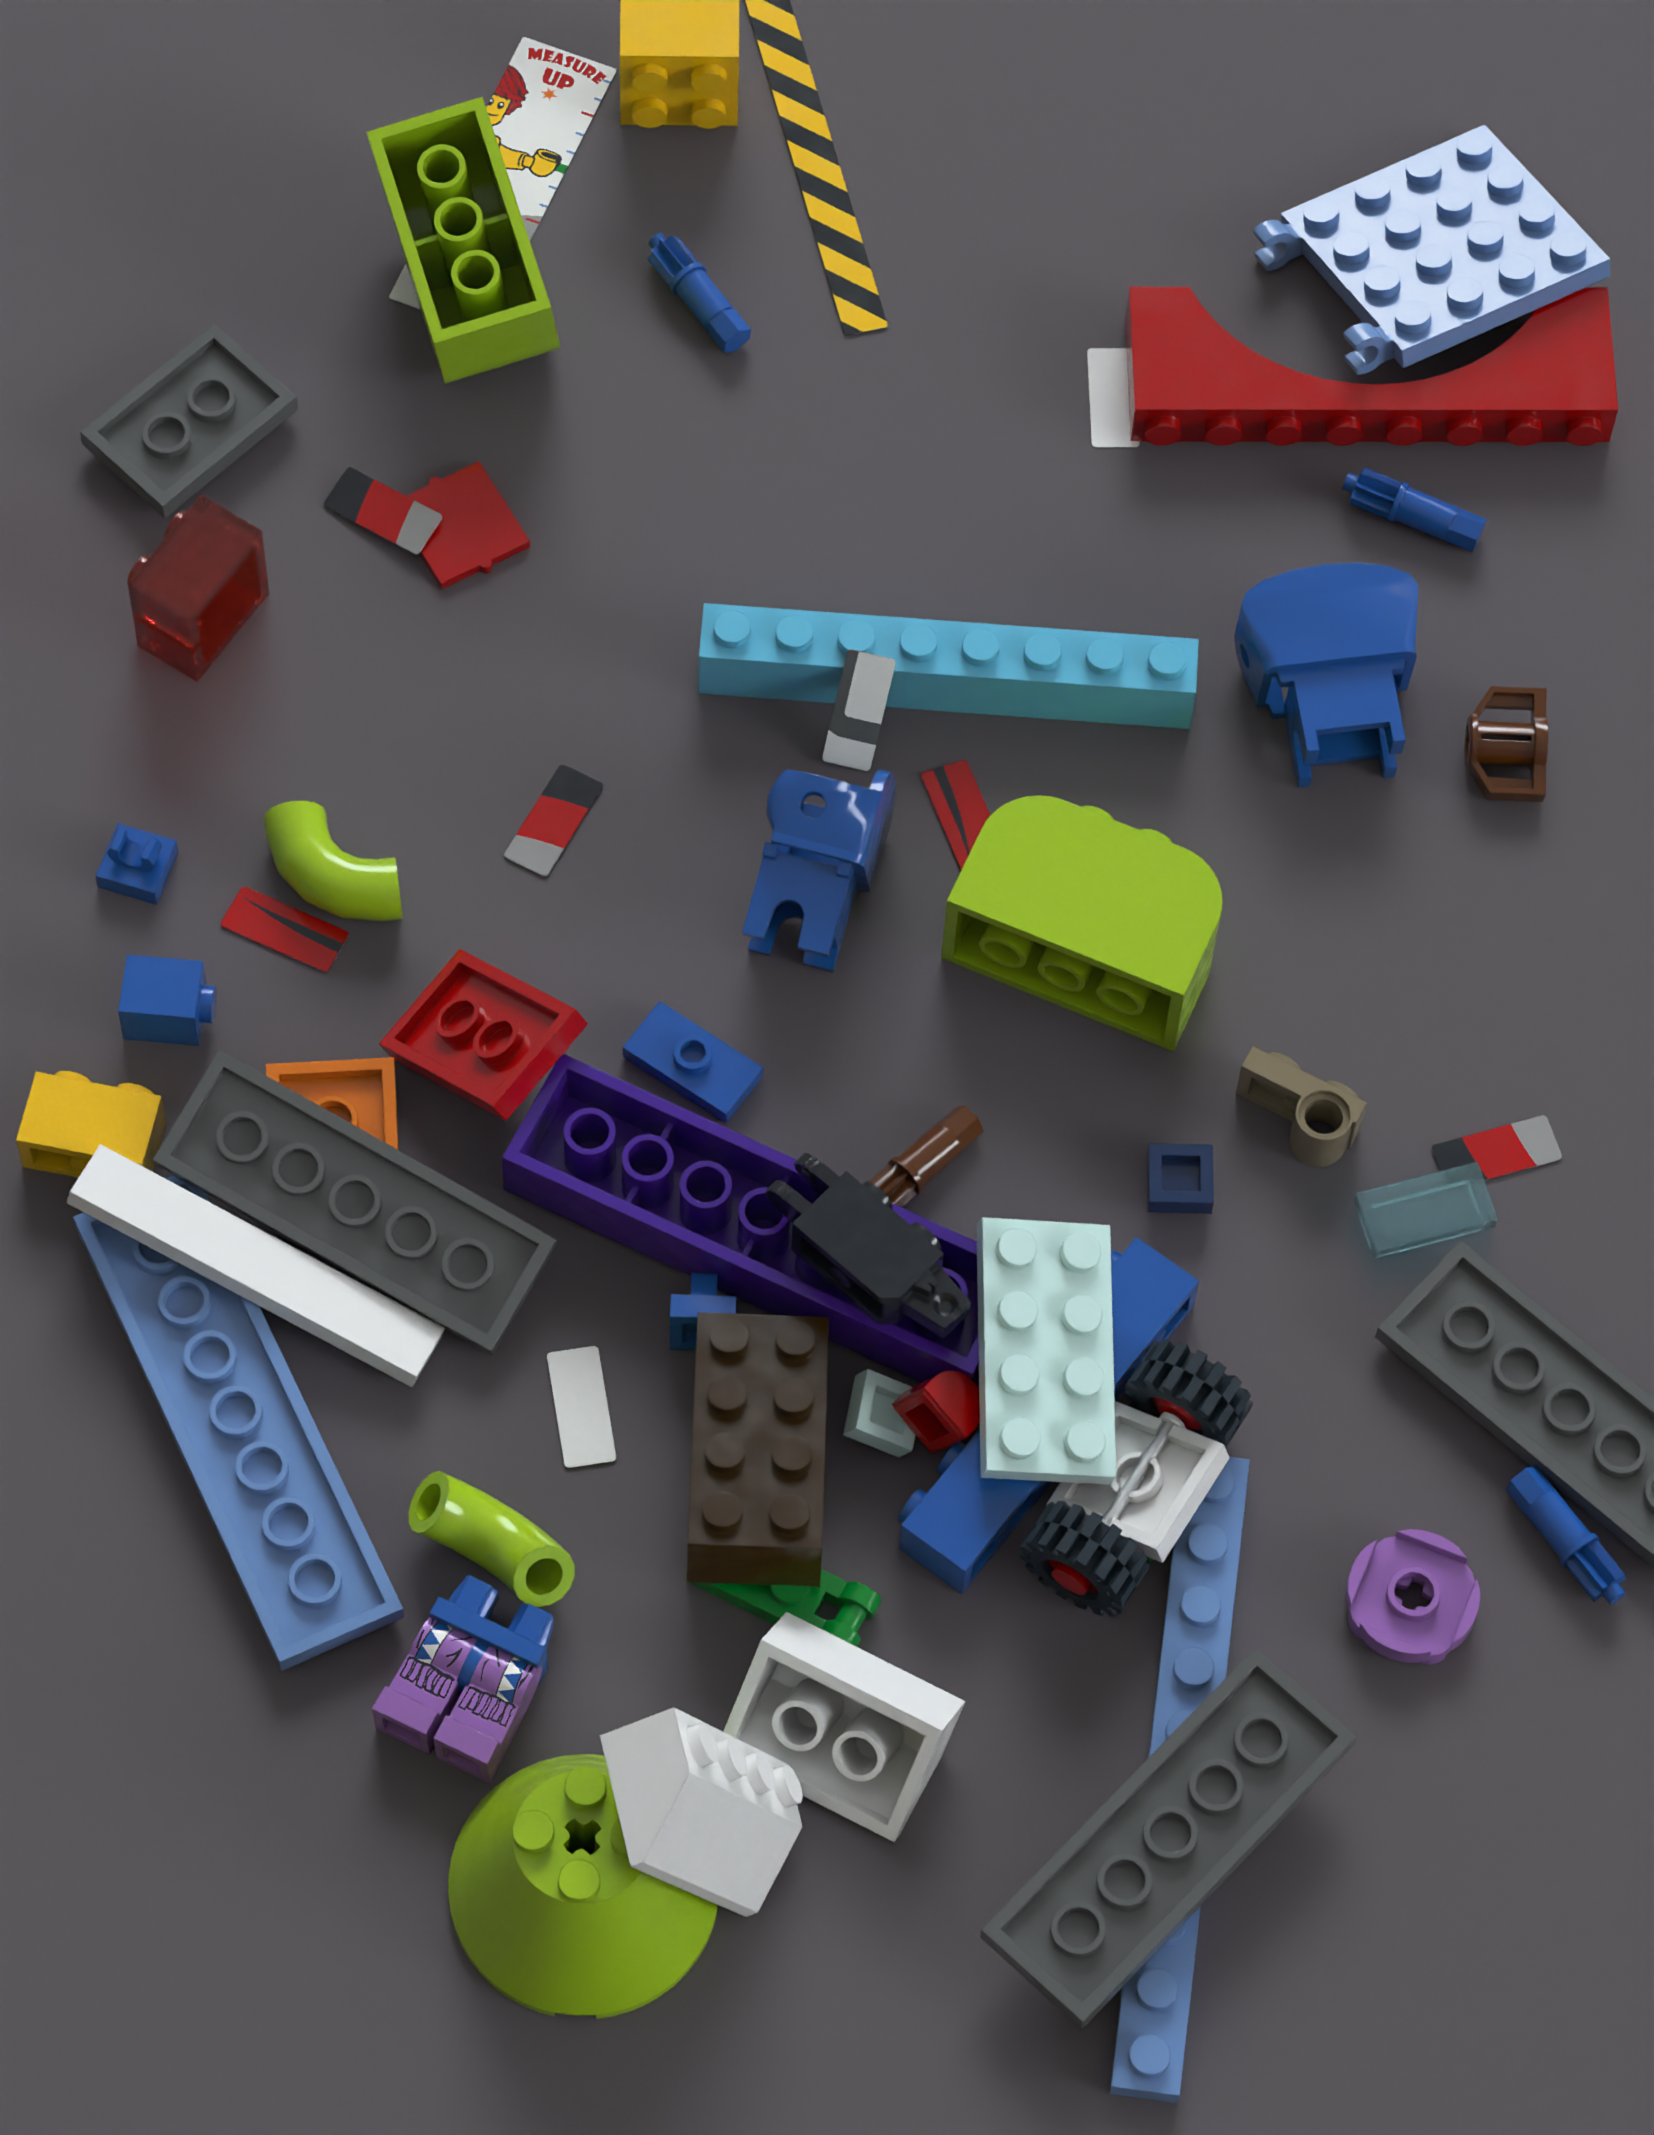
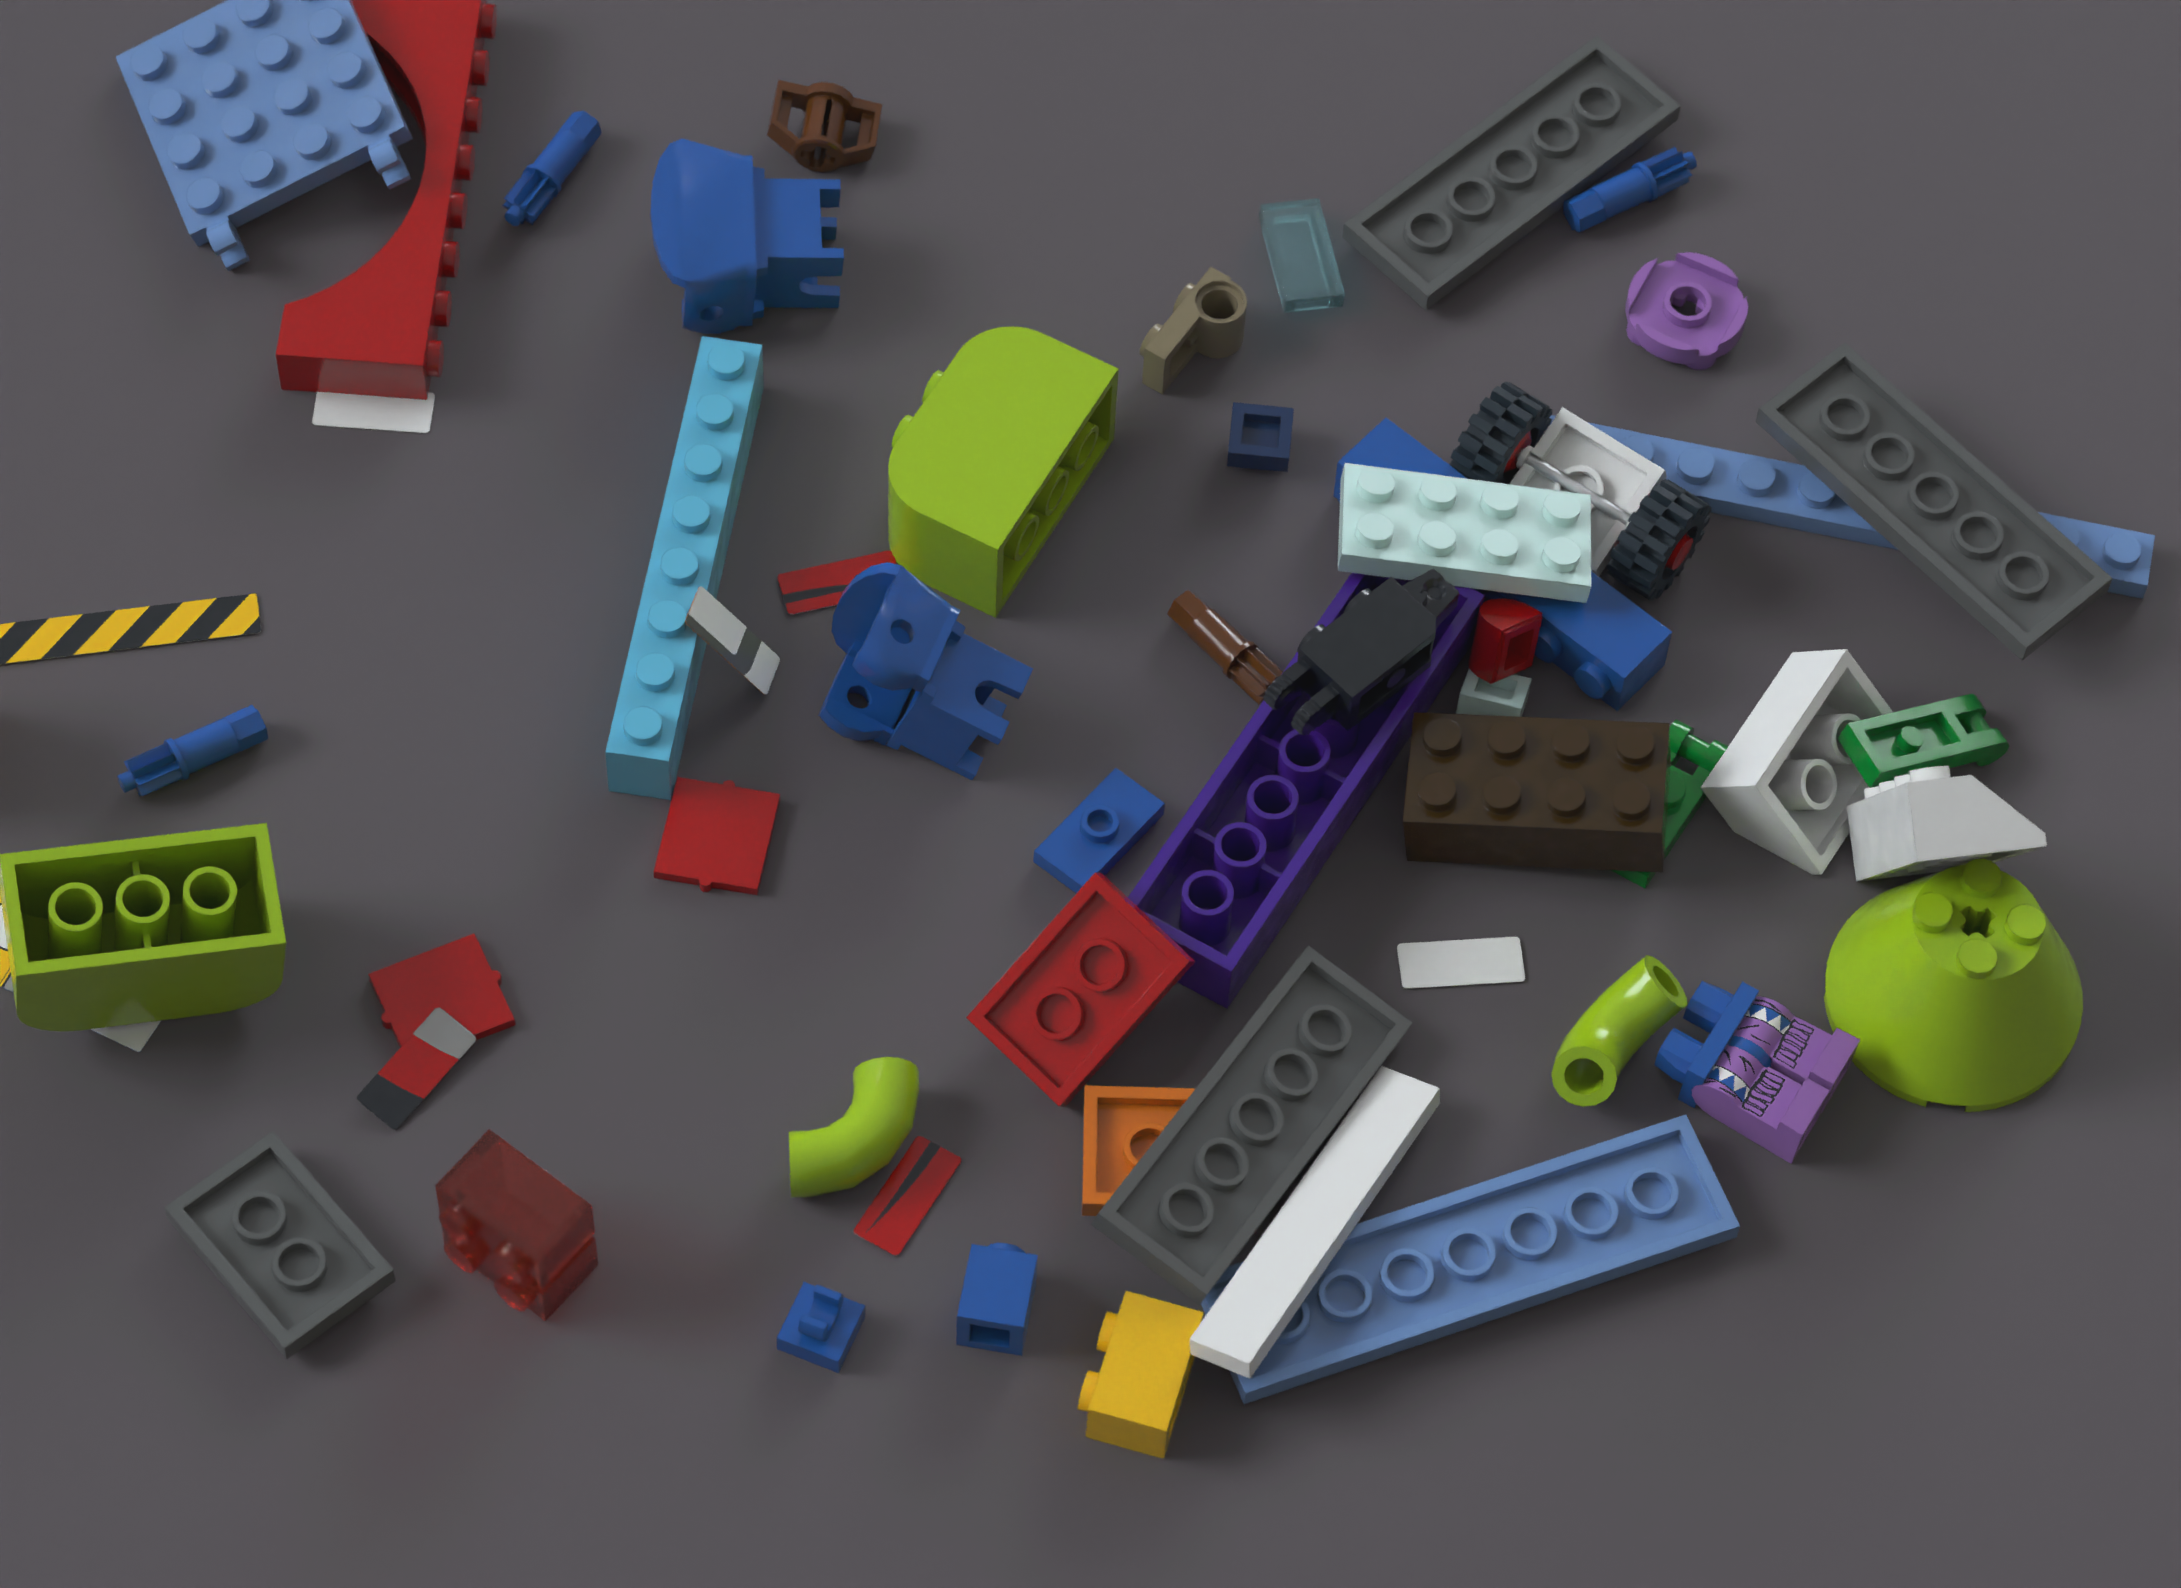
camera: 85 degrees left, 5 degrees down
(553, 820) = (805, 940): sticker -> none
(659, 733) = (717, 836): none -> red piece
(685, 1309) = (1380, 838): blue tile -> none
(868, 1836) = (1922, 737): none -> green plate
(1502, 1148) = (1237, 197): sticker -> none

